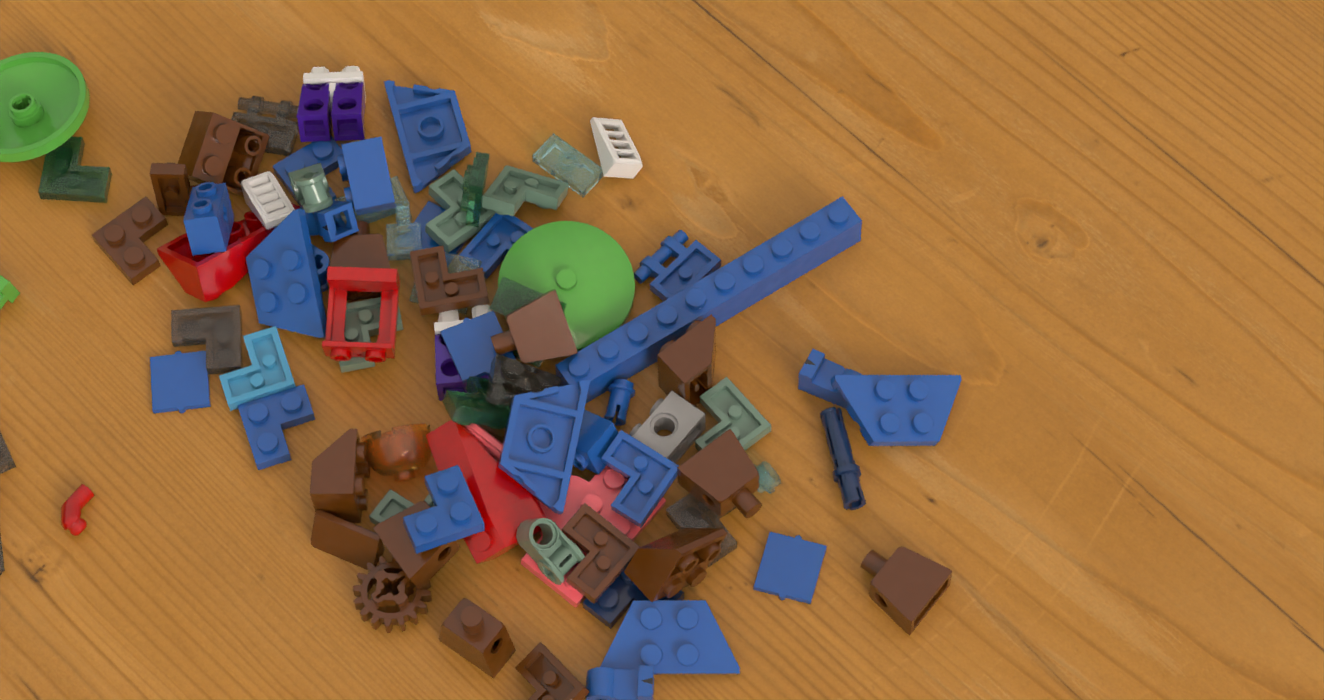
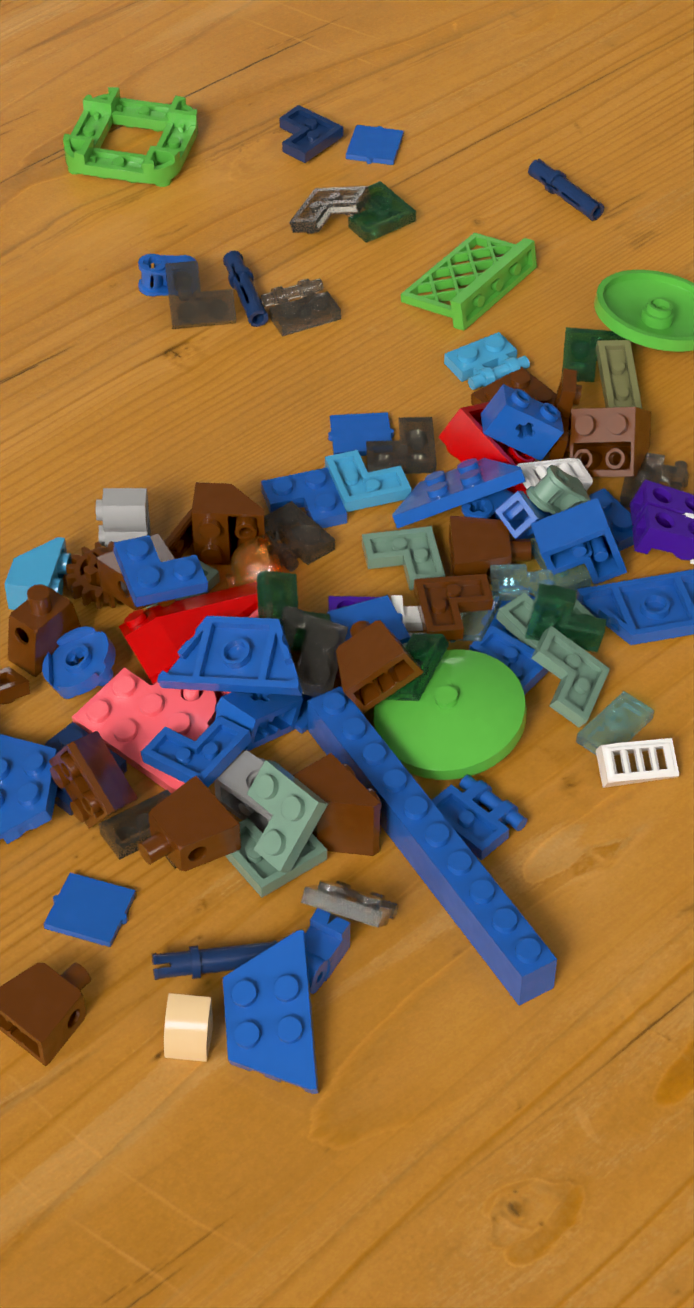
camera: 90 degrees right, 15 degrees down
(68, 275) = (485, 360): none -> dark azure plate
(72, 509) = (231, 366): red arm -> none
(127, 146) = (618, 374): none -> olive plate
(326, 427) = (299, 537): none -> clear smoke plate
(334, 572) = (123, 514): none -> light grey brick
(361, 280) = (379, 526): red panel -> none
(397, 656) = (38, 566): none -> dark azure slope
(526, 583) = (74, 679): none -> blue plate
(554, 553) = (117, 672): sand green piece -> none
(606, 551) = (118, 726): reddish brown plate -> none
(620, 394) = (301, 757): blue pin -> none
(715, 386) = (293, 811): none -> sand green plate
(767, 478) = (202, 890): clear light blue plate -> none
(786, 354) = (349, 903): none -> clear smoke plate
(915, 470) = (188, 1027): none -> tan brick

